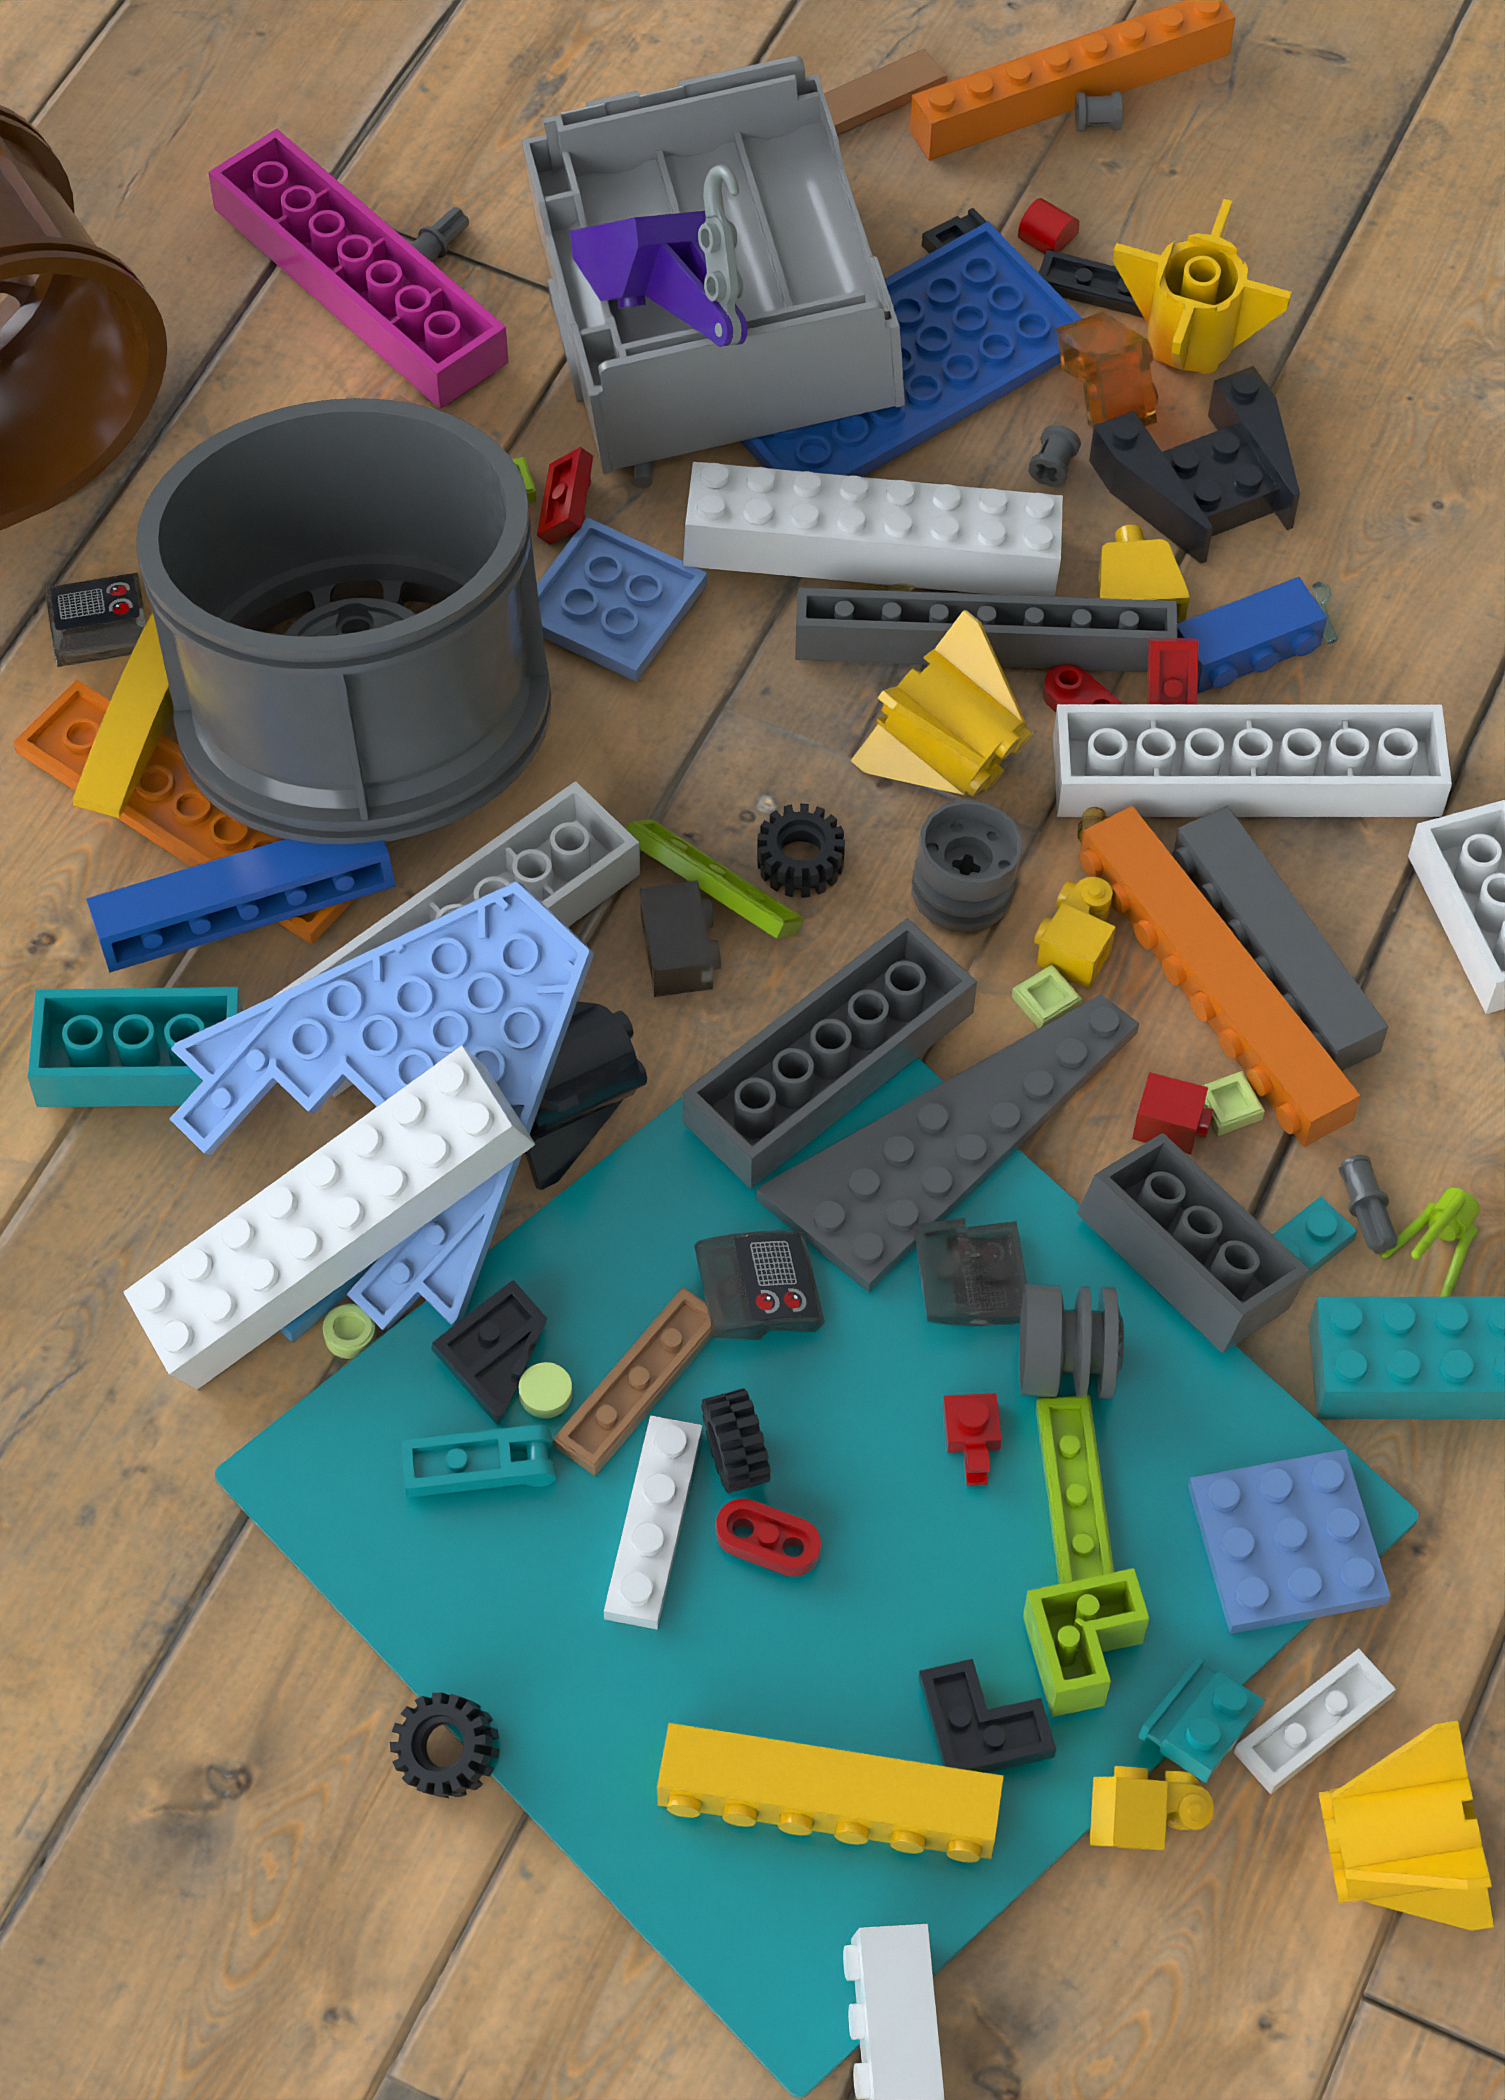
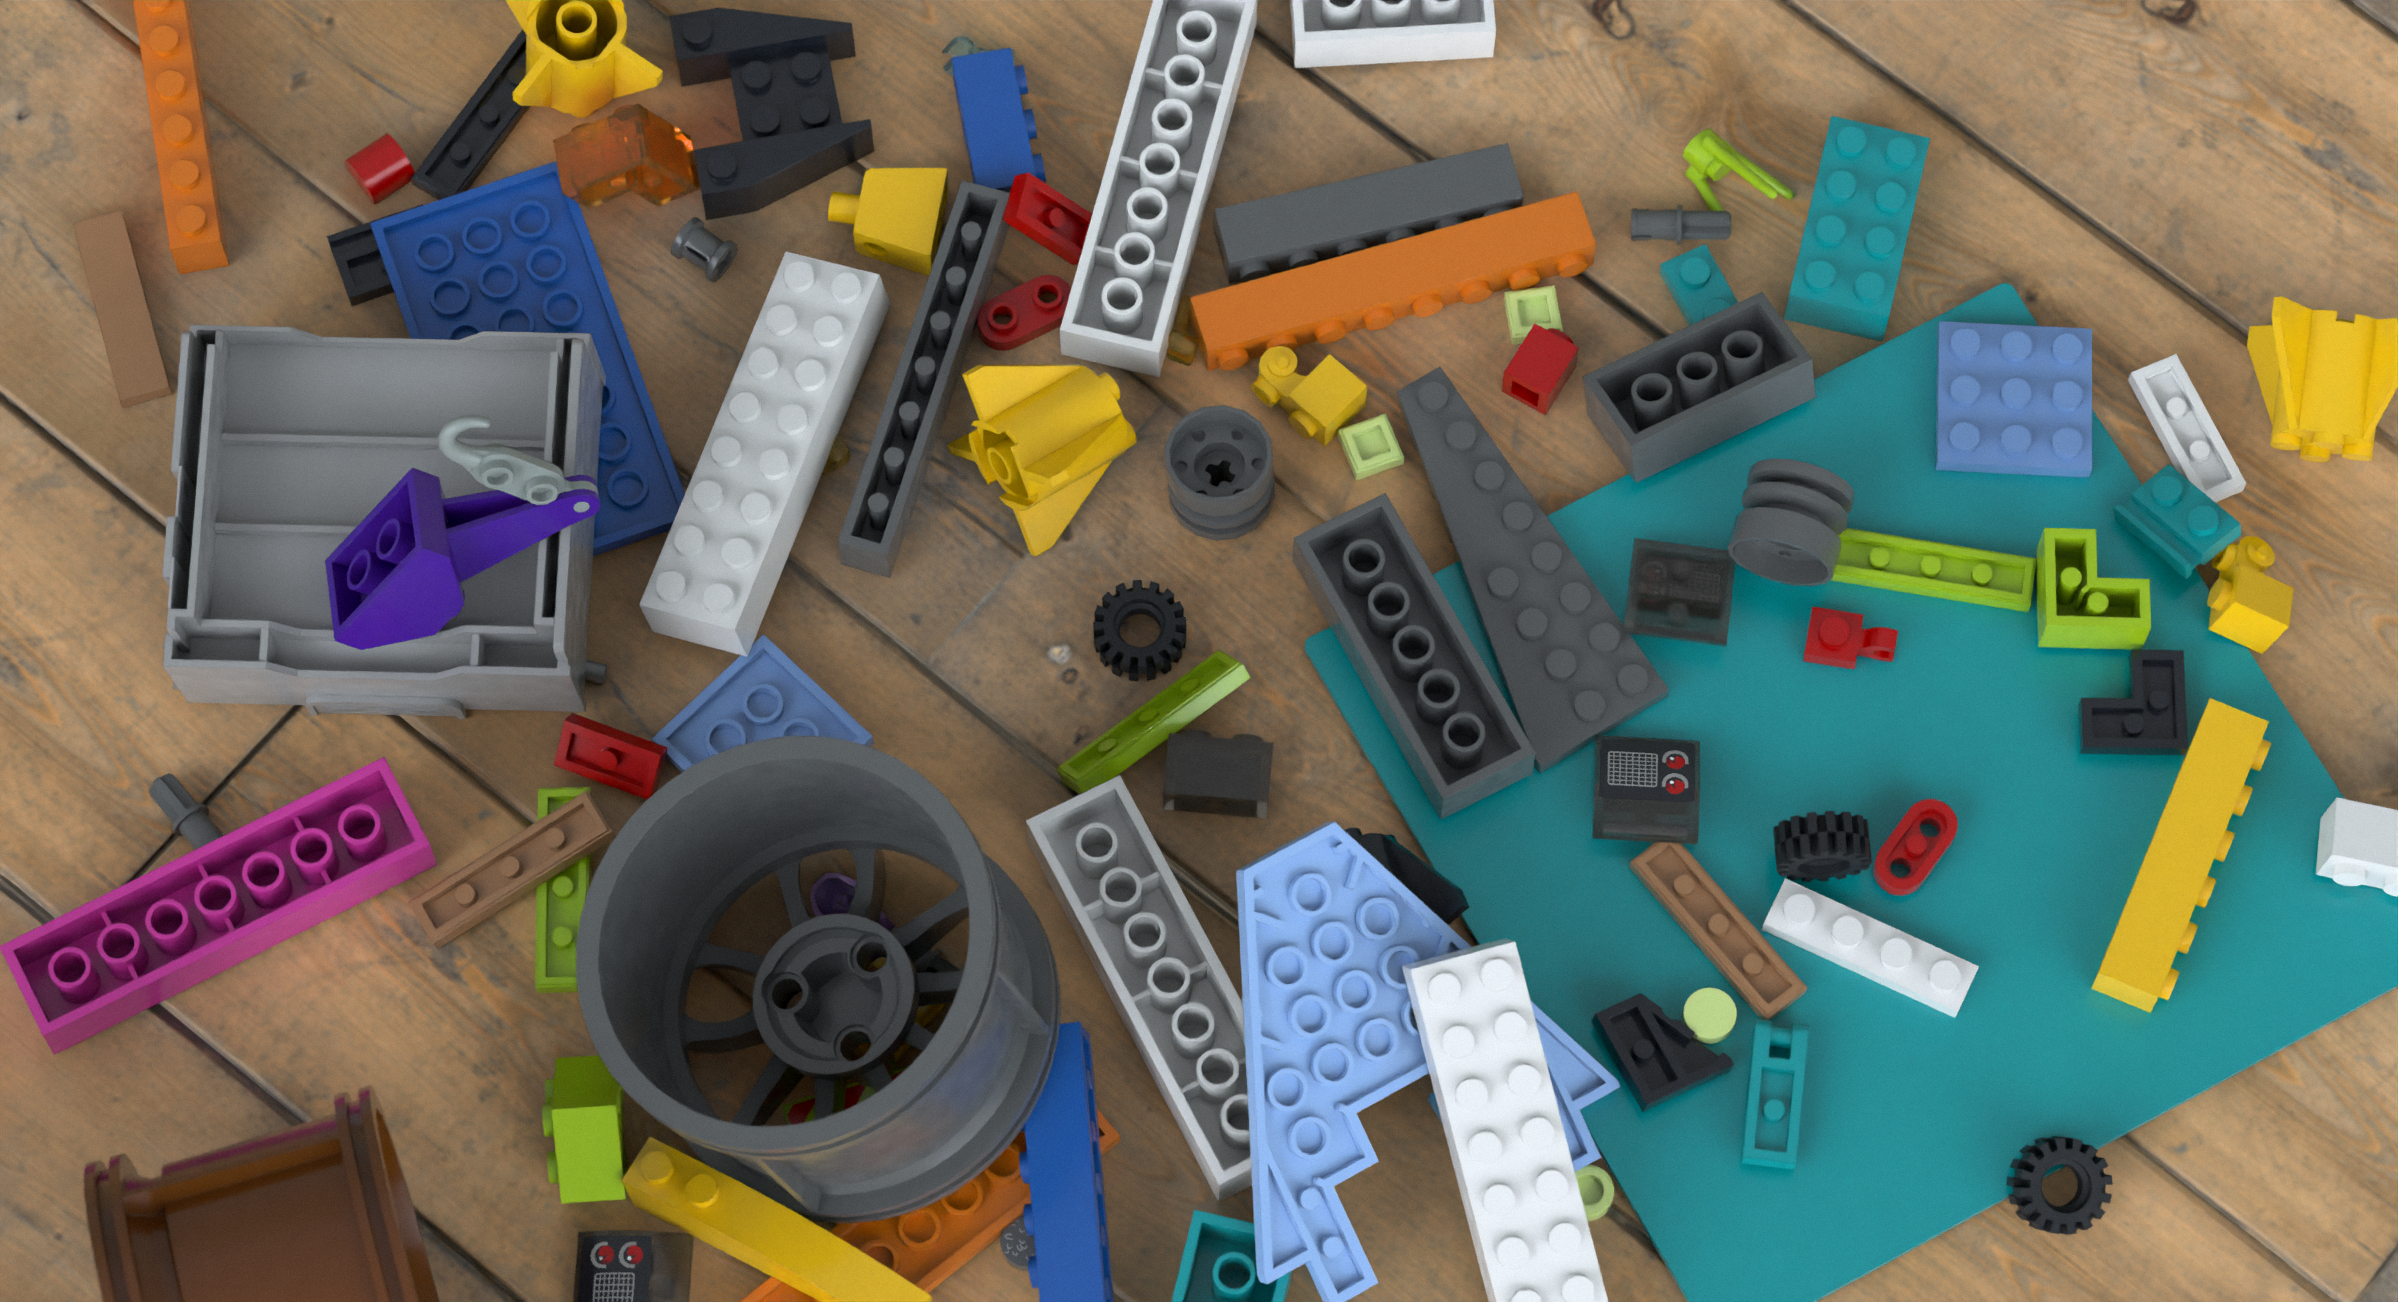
camera: 75 degrees left, 10 degrees up
(1098, 111) = (230, 68): dark grey bush -> none

